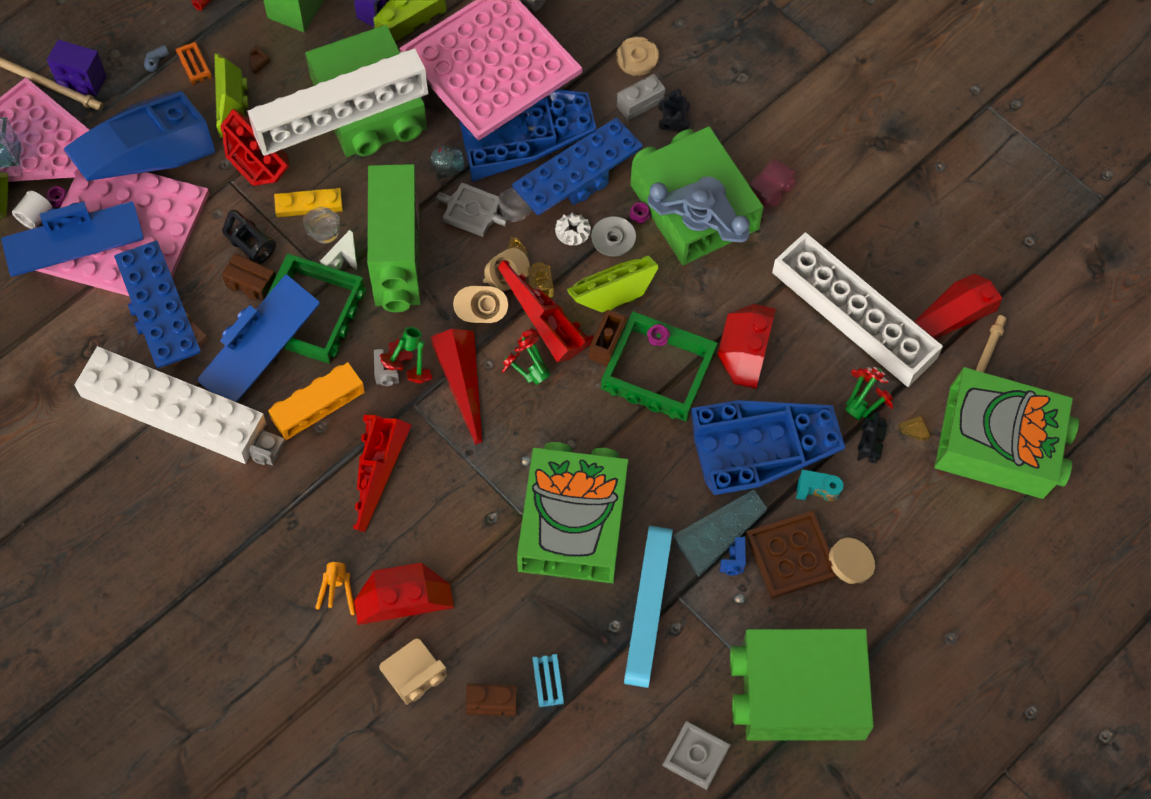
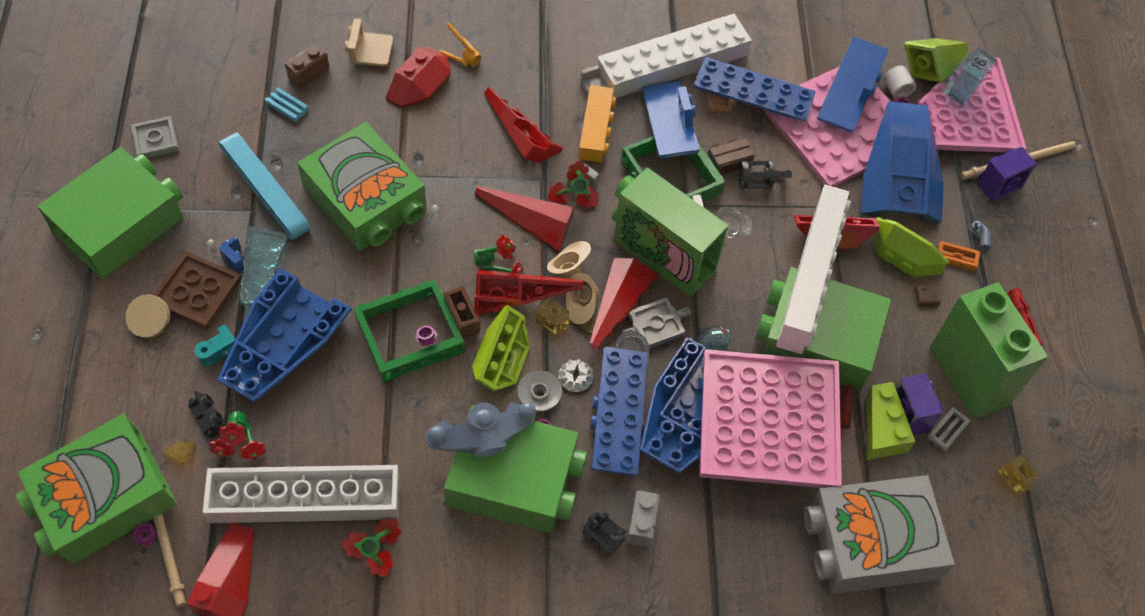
camera: 130 degrees right, 5 degrees down
(303, 202) = (762, 235): yellow plate -> none
(463, 250) = (624, 286): none -> red wedge
(637, 56) = (689, 561): tan tile -> none
(745, 343) = (367, 406): red wedge -> none
(772, 183) = (469, 543): clear pink brick -> none
(843, 226) = (361, 545): none -> red plant

